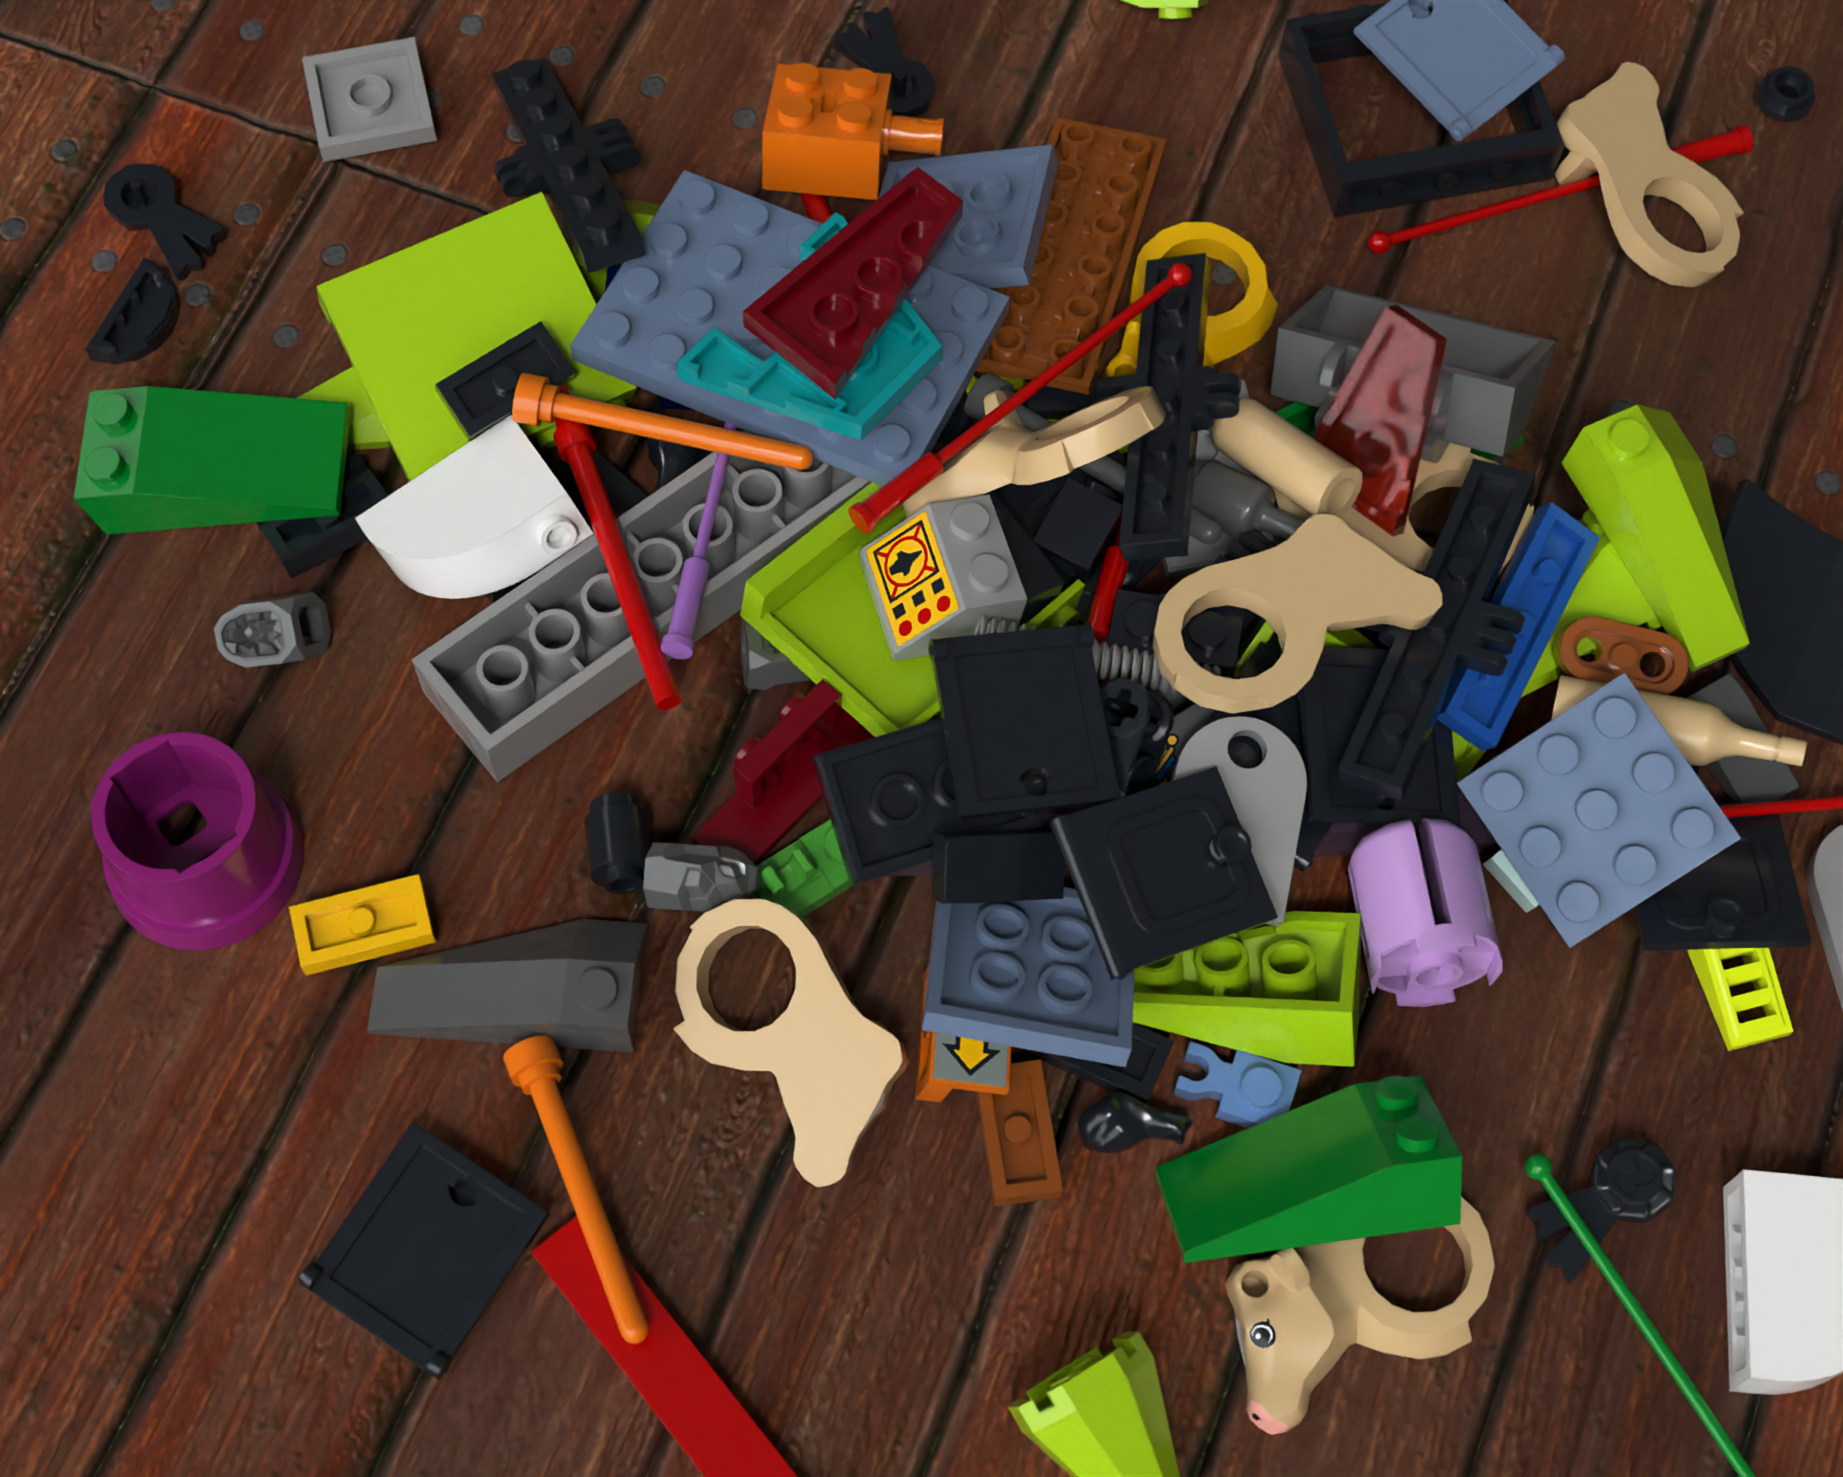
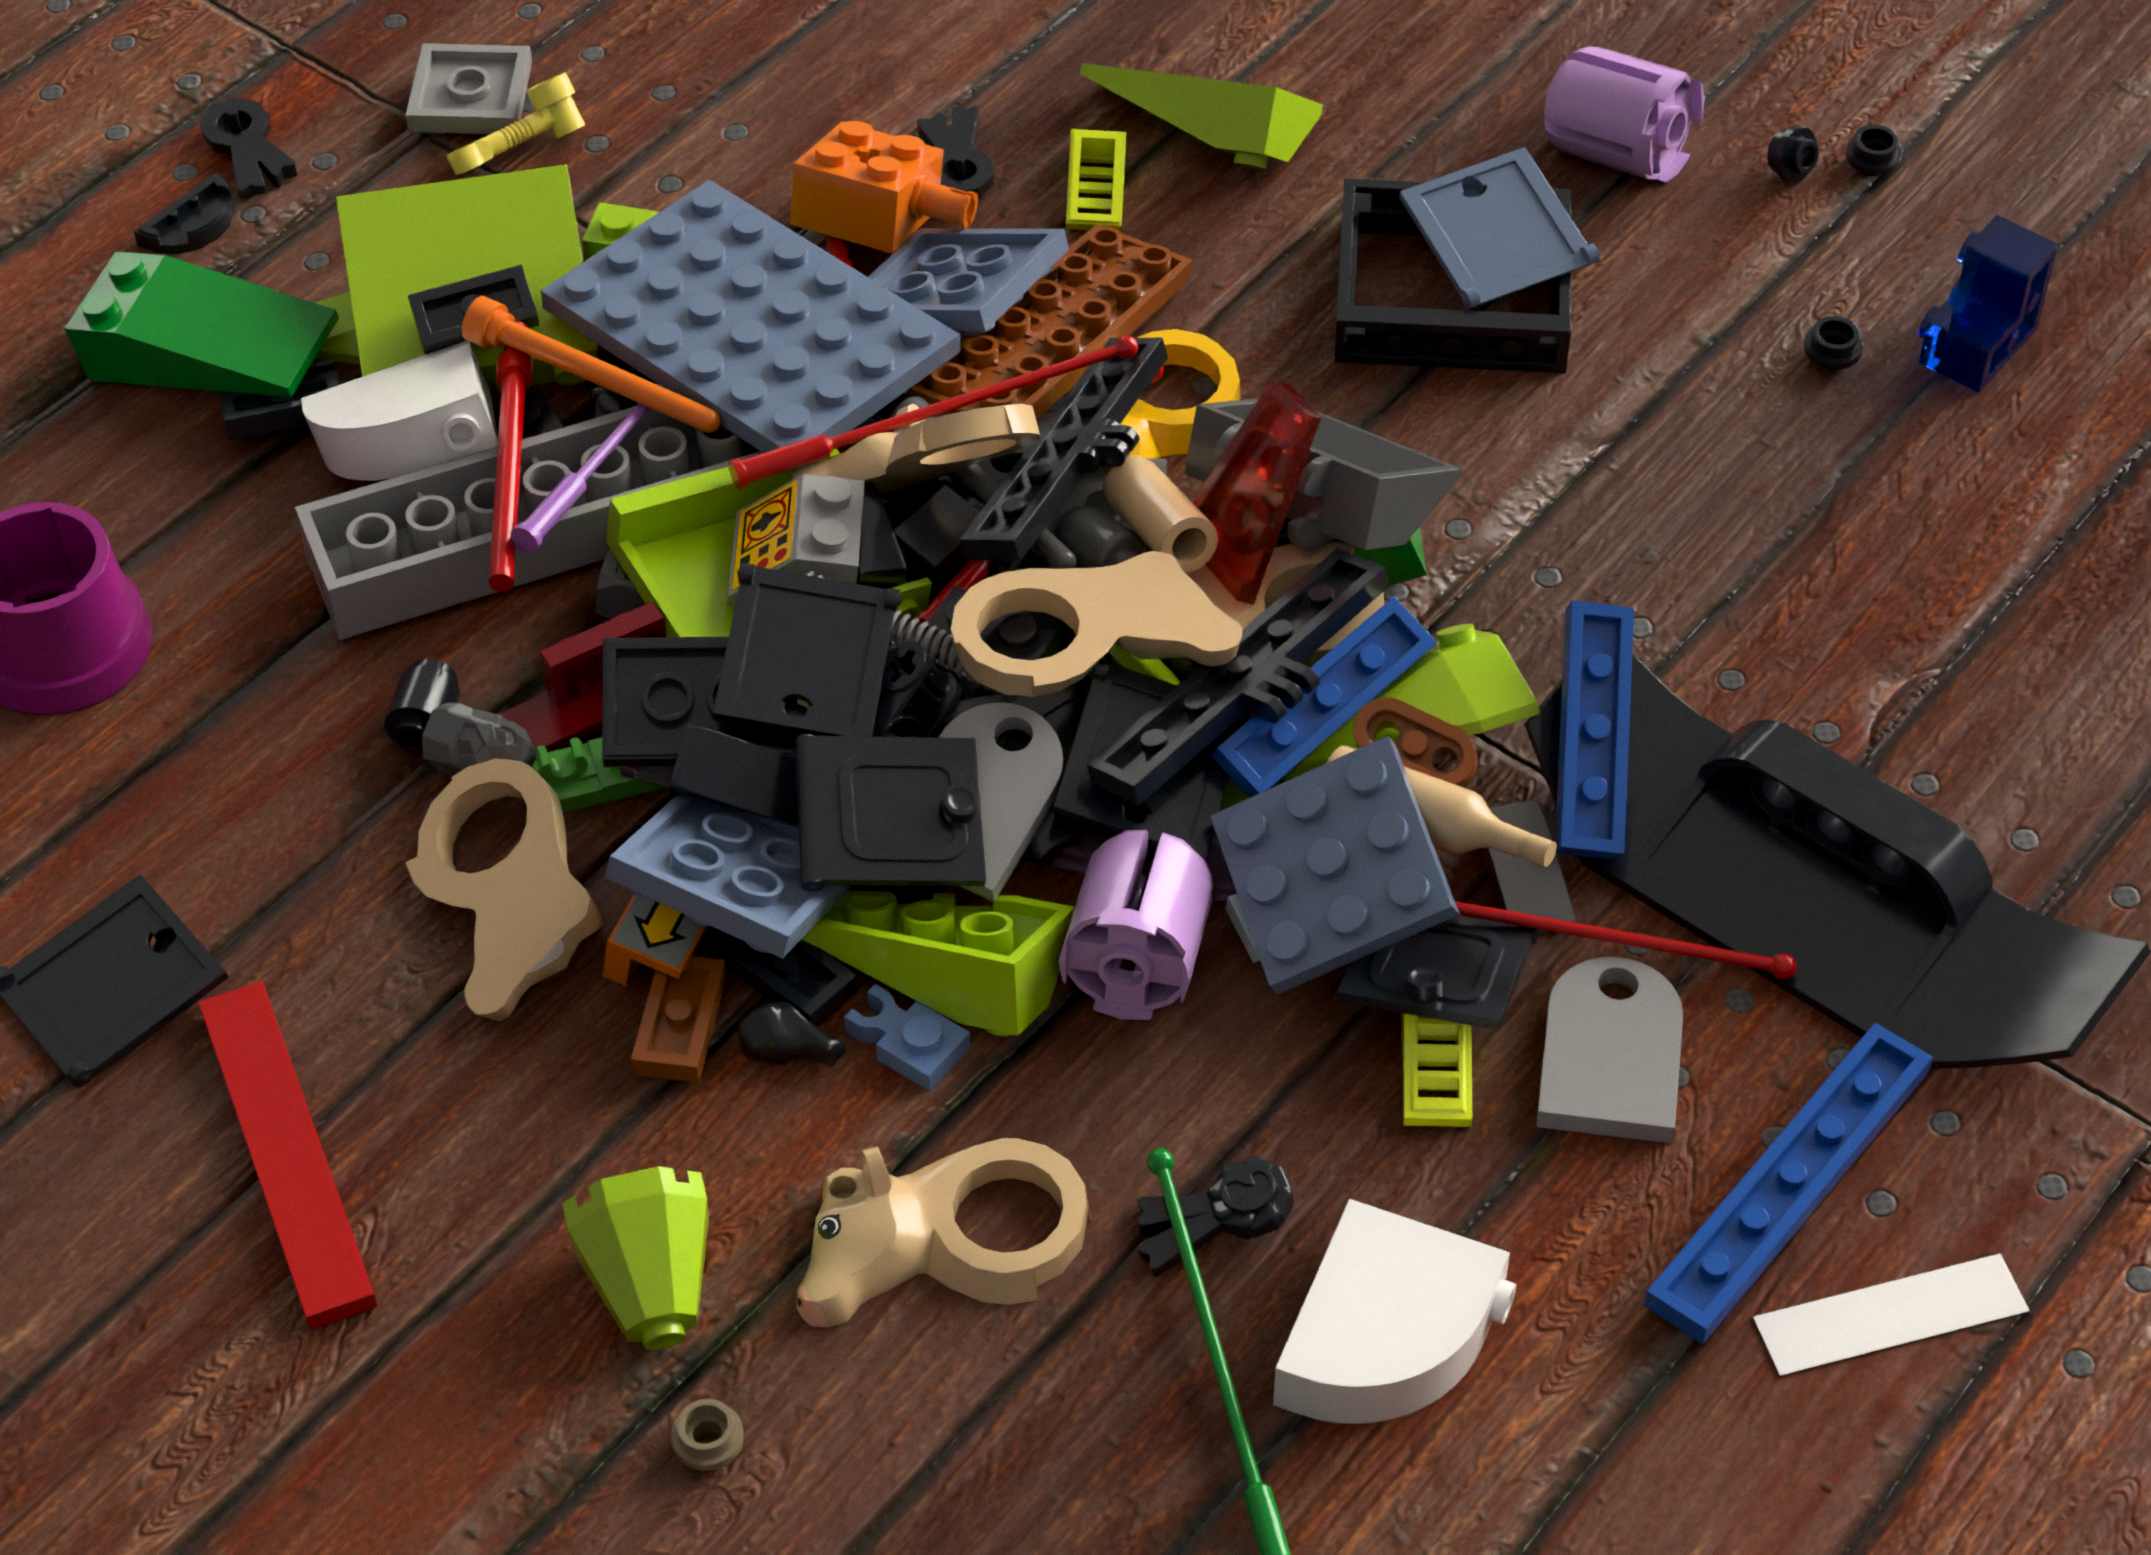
camera: 20 degrees right, 15 degrees down
(274, 630) = (196, 473): dark grey rock -> none
(362, 924) = (168, 718): yellow plate -> none
(469, 109) = (553, 111): none -> light yellow brick
(535, 1068) = (267, 862): orange piece -> none
(554, 981) = (300, 809): dark grey wedge -> none
(568, 164) = (614, 159): black hinge -> none
(850, 288) = (796, 277): dark red wing -> none
(885, 376) = (768, 342): teal wing -> none
(1031, 28) = (1095, 147): none -> neon yellow slope
(1320, 1174) = (965, 1103): green slope -> none
(1624, 140) = (1634, 350): tan animal -> none
(1663, 524) = (1504, 638): lime wedge -> none
(1736, 141) = (1687, 377): red piece -> none
(1770, 591) = (1594, 730): none -> blue plate

